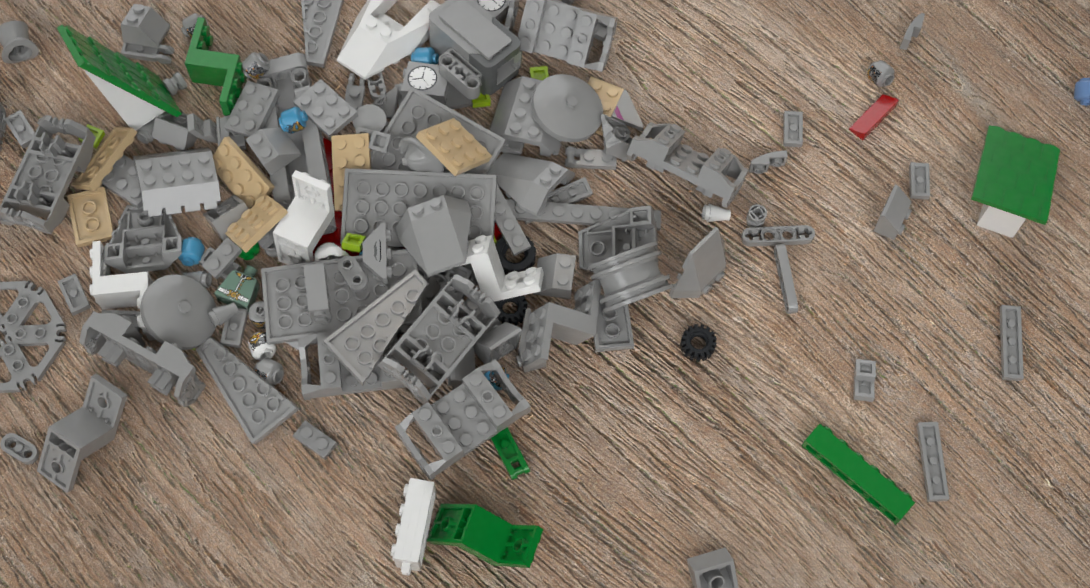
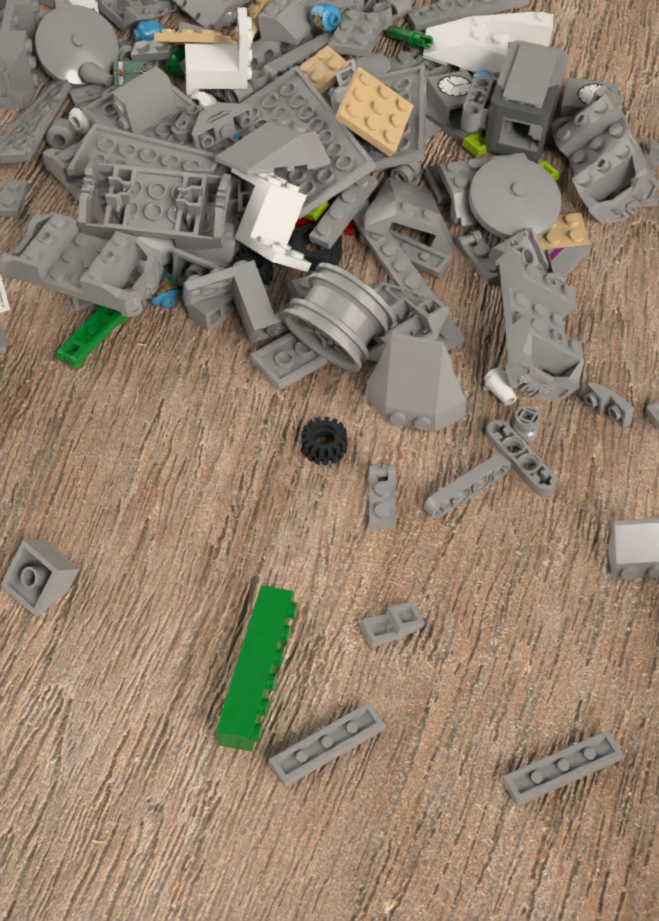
camera: 65 degrees right, 15 degrees down
(345, 73) = (413, 37): none -> green pin
(762, 332) = (382, 498): none -> light grey plate

